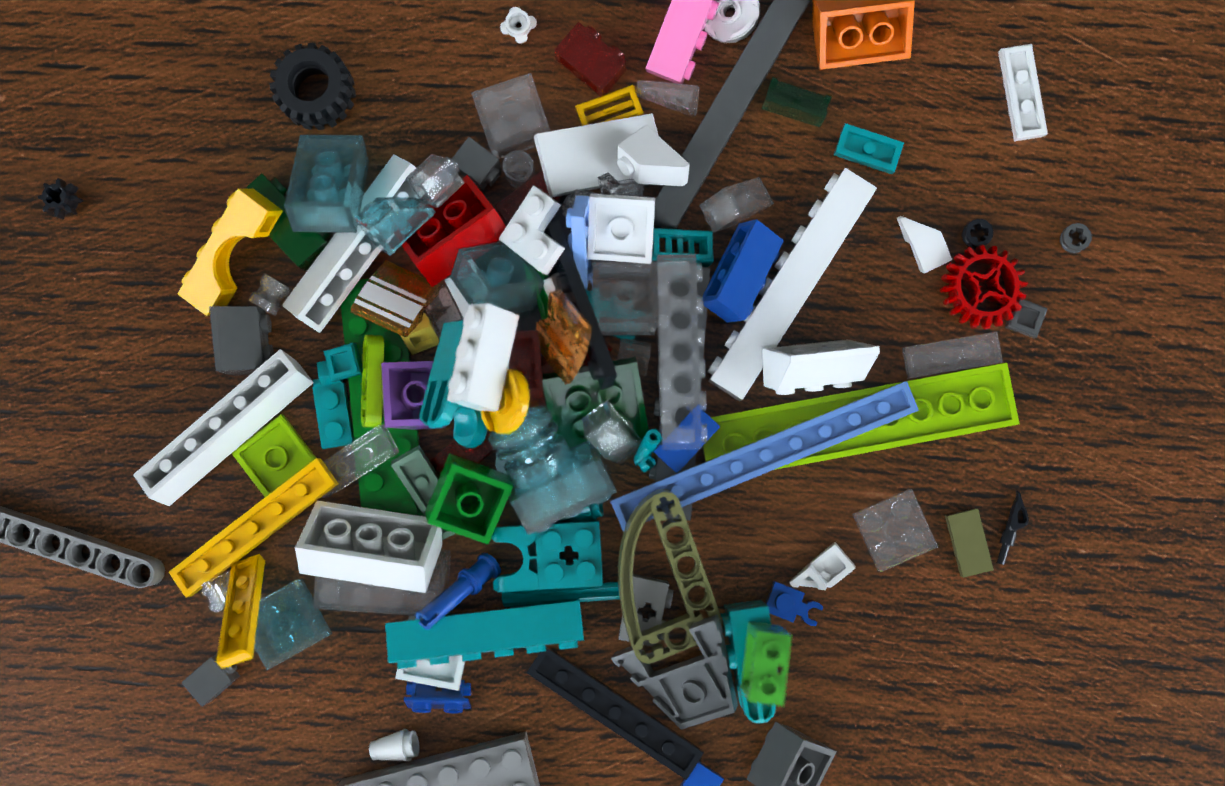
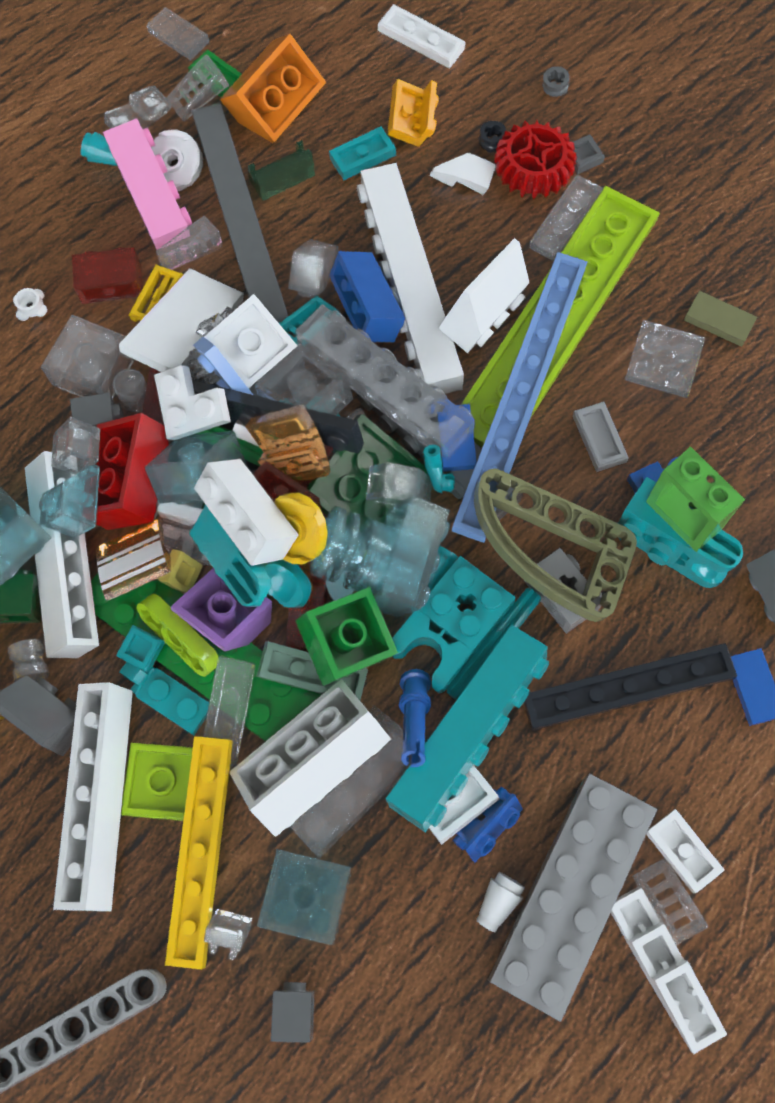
camera: 45 degrees left, 15 degrees down
(241, 611) = (260, 917): yellow tile -> none
(651, 160) = (223, 284): white slope -> none
(693, 688) = (663, 605): dark grey wing -> none
(789, 534) = (600, 436): none -> light grey tile
(825, 569) = (651, 432): white slope -> none
(940, 154) = (412, 112): none -> light orange bracket
(1012, 525) = (733, 280): black hand -> none

